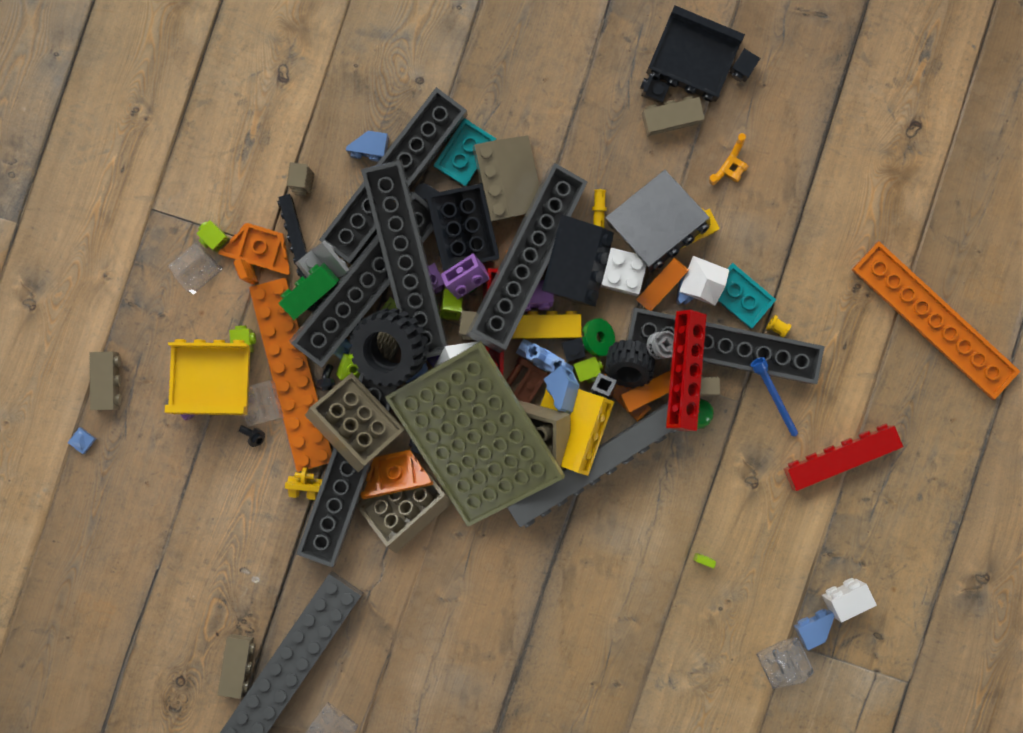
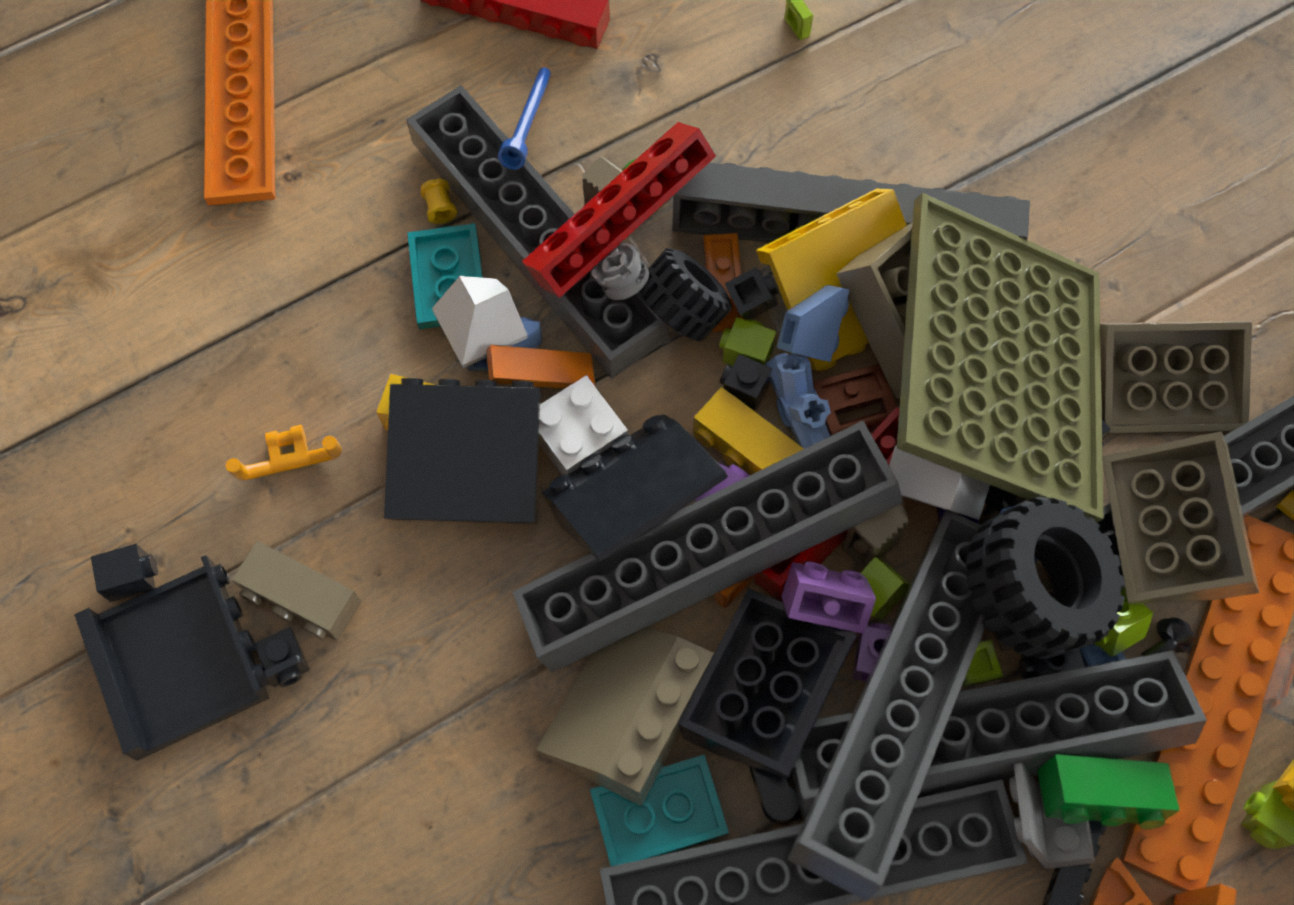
camera: 140 degrees left, 20 degrees down
(395, 474) = (1151, 412): orange wing -> none
(599, 207) = (530, 549): yellow pin -> none
(606, 335) = (702, 355): green tile -> none
(642, 395) = (716, 255): orange tile -> none

